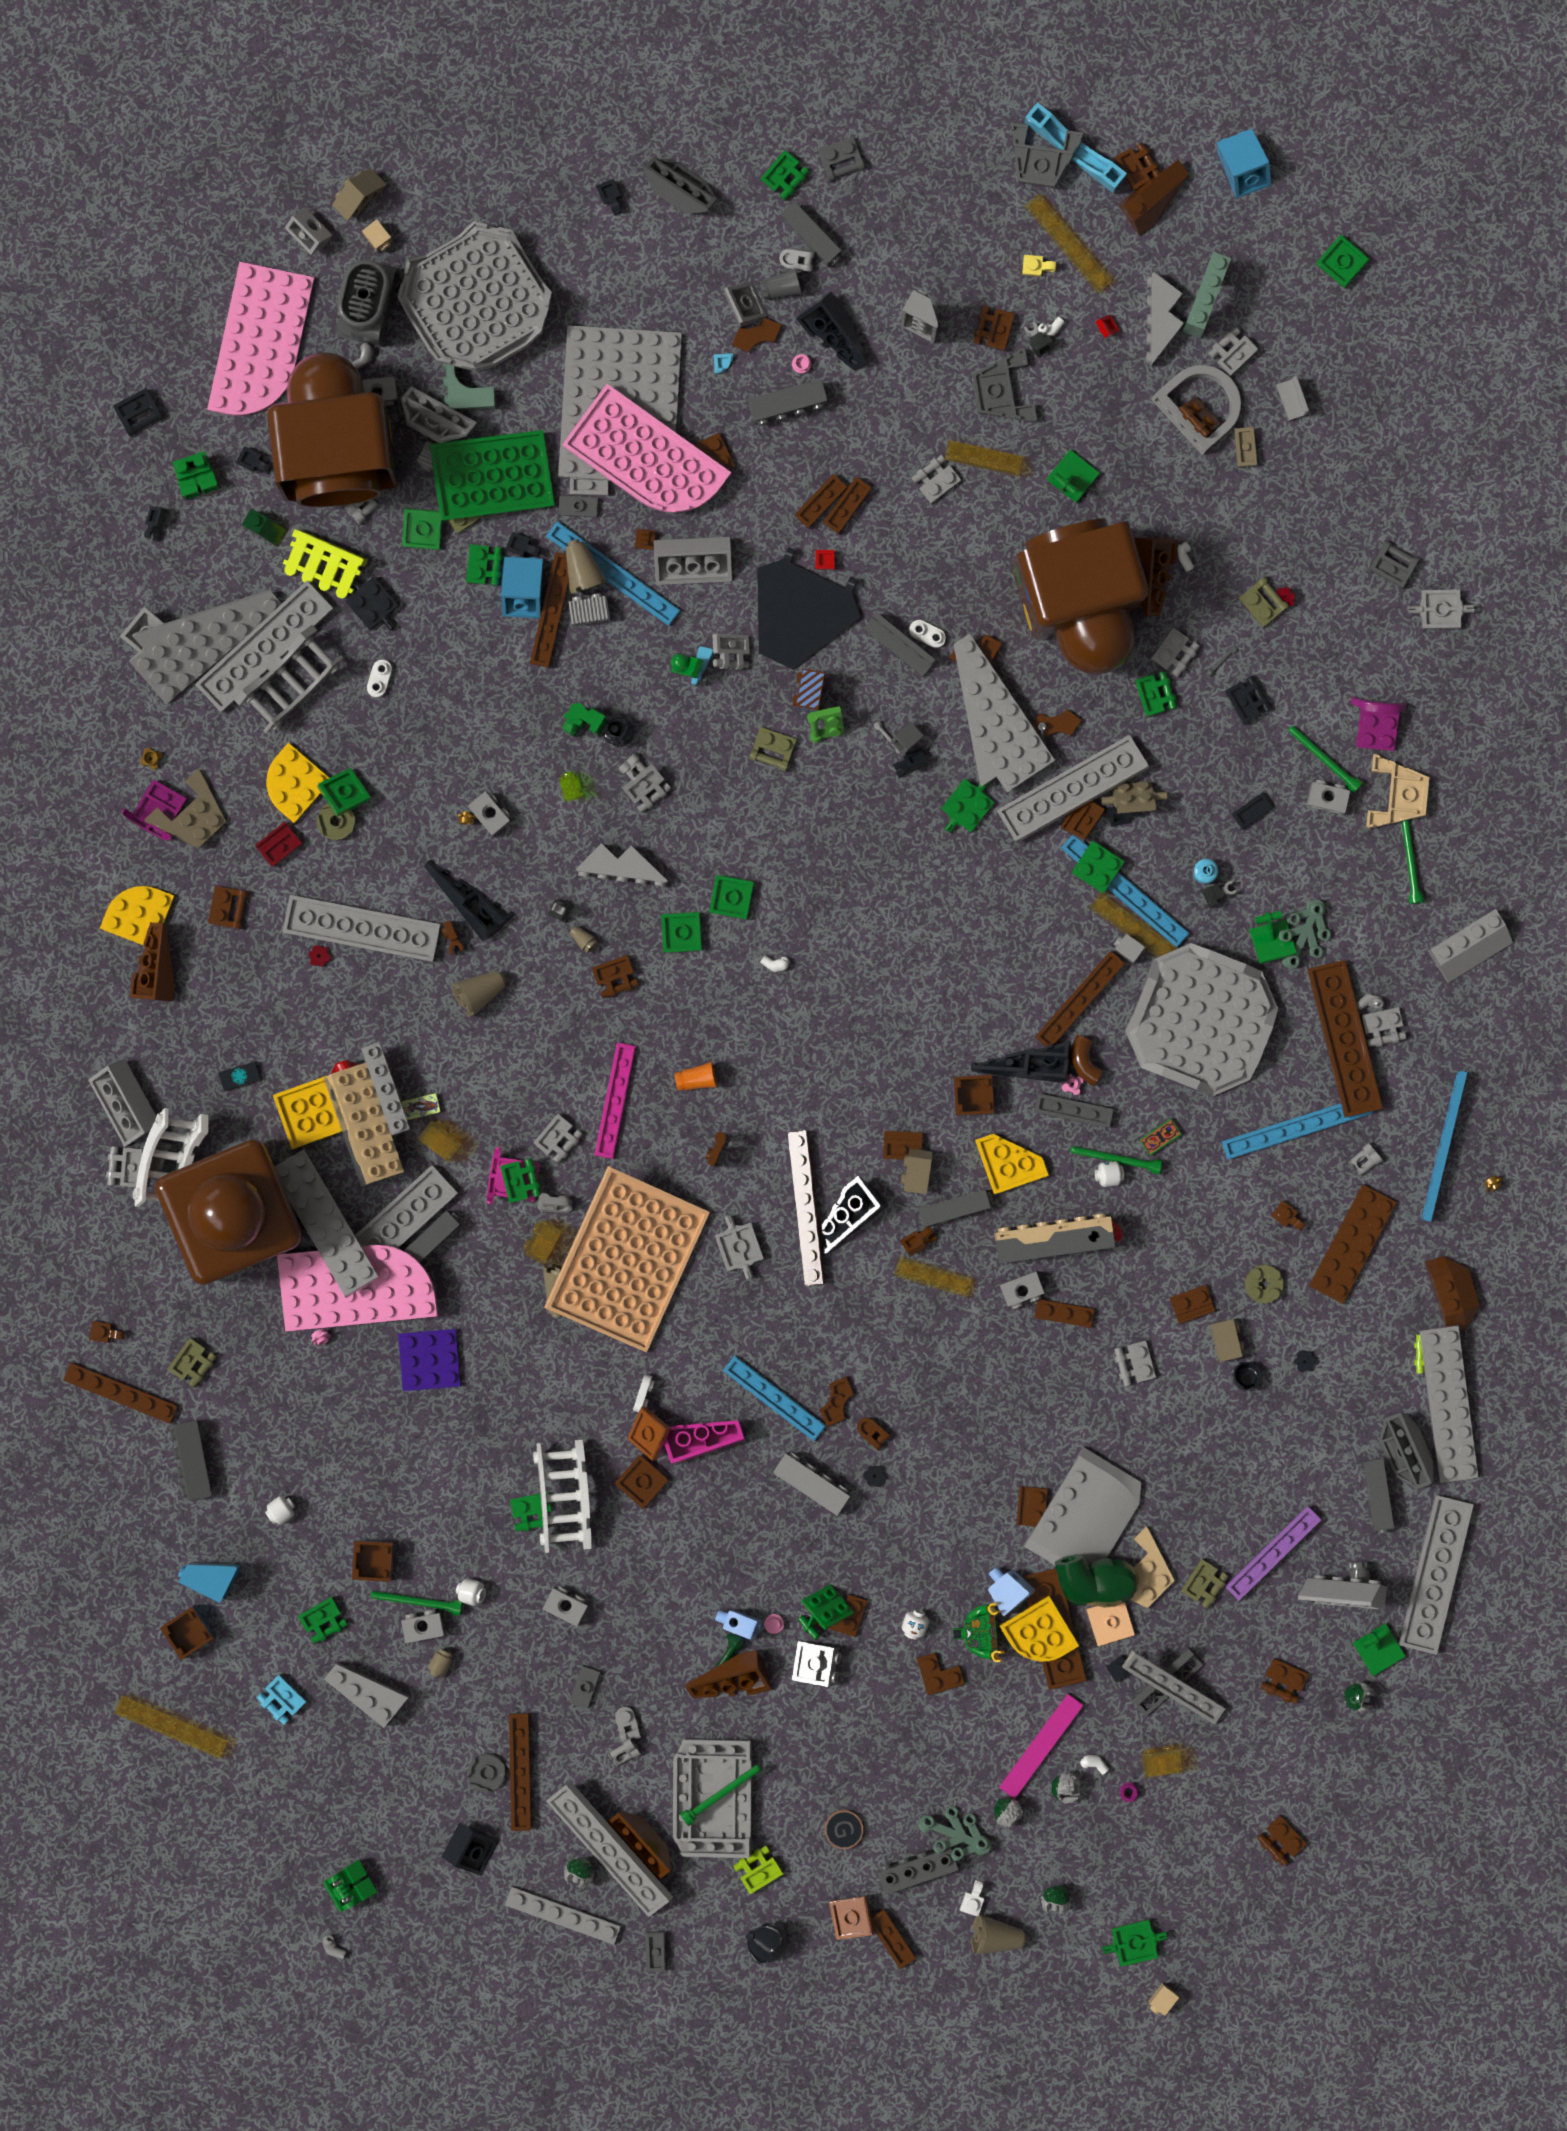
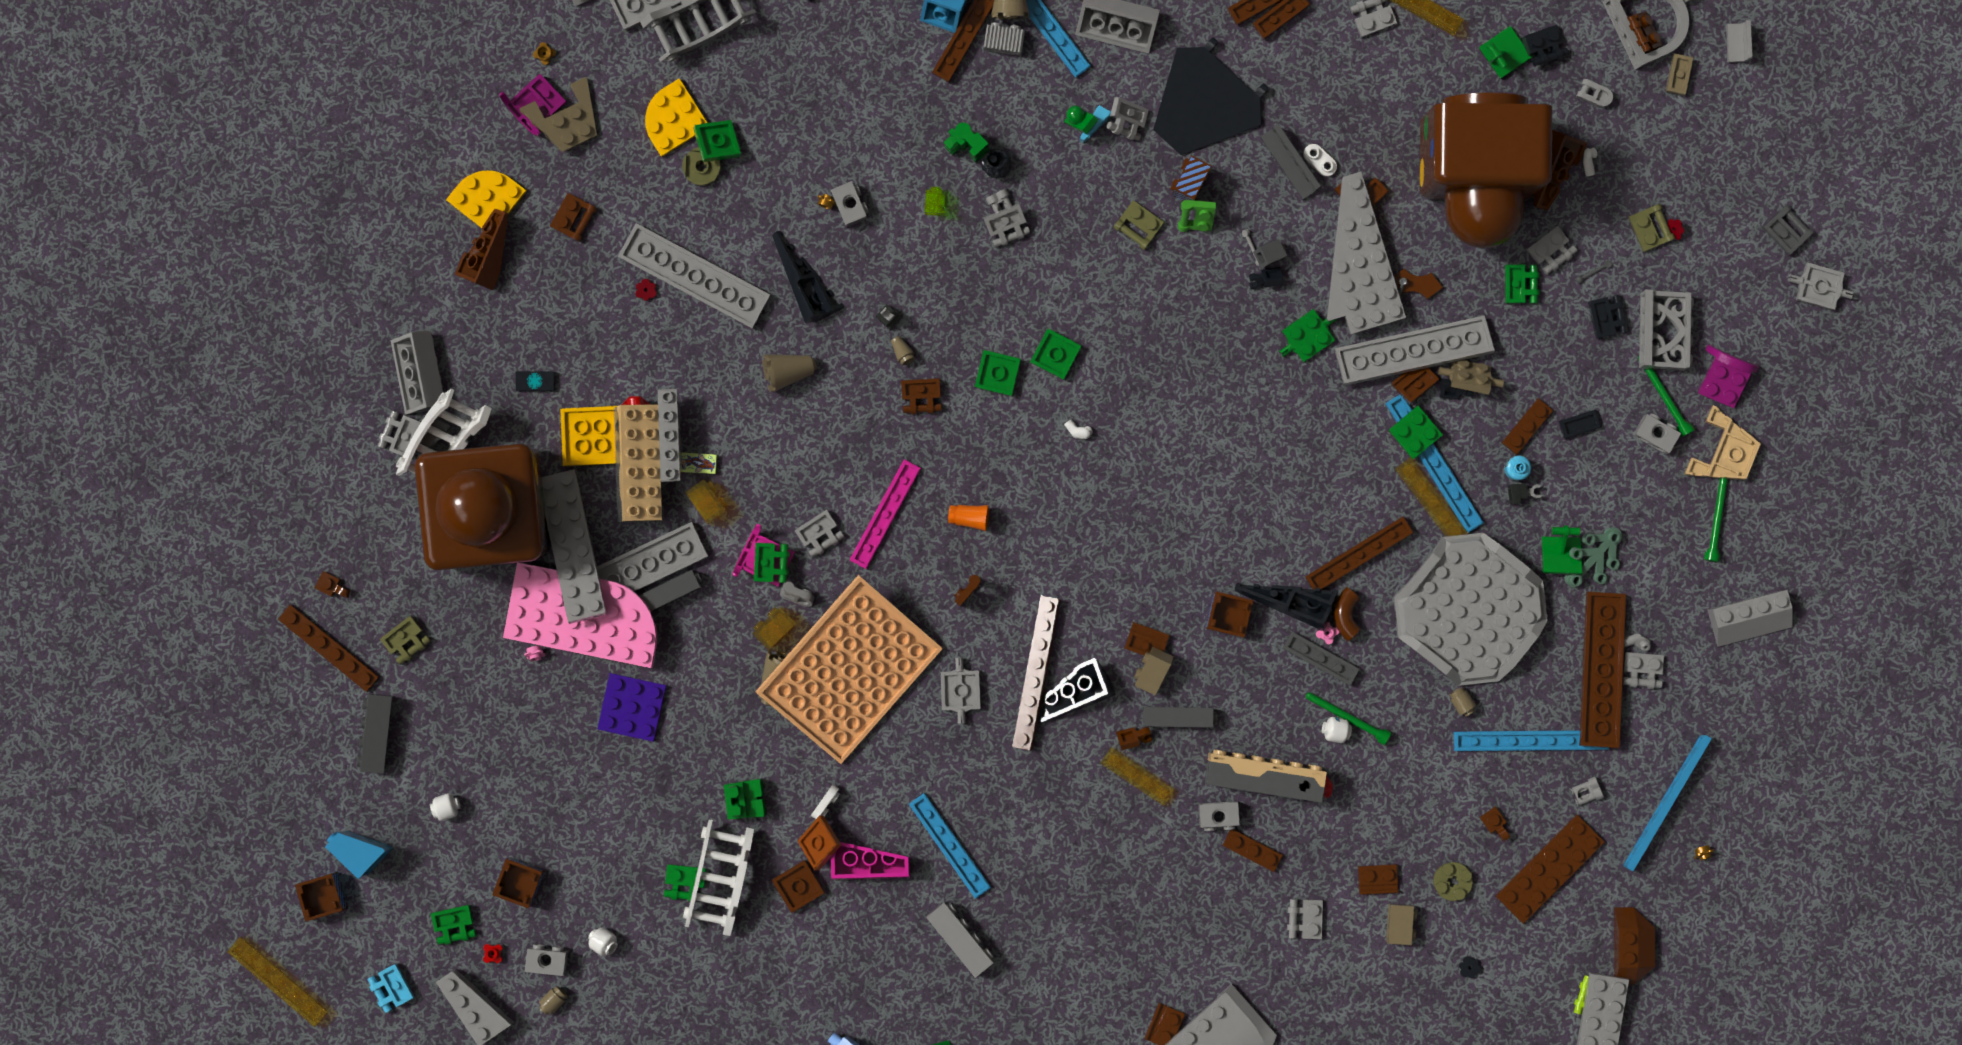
camera: 25 degrees right, 0 degrees up
(278, 844) = (640, 172): dark red plate -> none
(372, 1632) = (497, 953): none -> red plate
(379, 678) = (784, 43): white plate -> none
(449, 932) = (777, 306): reddish brown plate -> none
(454, 1607) = (581, 950): green piece -> none
(553, 1605) = (691, 994): light grey brick -> none
(564, 1422) = (741, 808): none -> green hips
(628, 866) = (966, 294): light grey slope -> none
(824, 560) = (1243, 59): red plate -> none
(833, 1410) = (1002, 874): reddish brown tile -> none
(867, 1427) = (1029, 902): reddish brown plate -> none
(868, 1475) = (1022, 955): black plant -> none
(1008, 1163) = (1242, 690): yellow plate -> none
(1104, 454) = (1543, 40): none -> black plate
(1128, 947) = (1421, 519): light grey brick -> none
(1160, 1137) = (1396, 709): tile -> none
(1177, 492) = (1601, 98): none -> light grey plate
(1202, 828) = (1526, 426): none -> reddish brown plate
(1221, 1110) = (1462, 701): none -> dark tan brick
(1250, 1381) = (1412, 970): black hair -> none
(1296, 720) = (1683, 326): none -> light grey fence

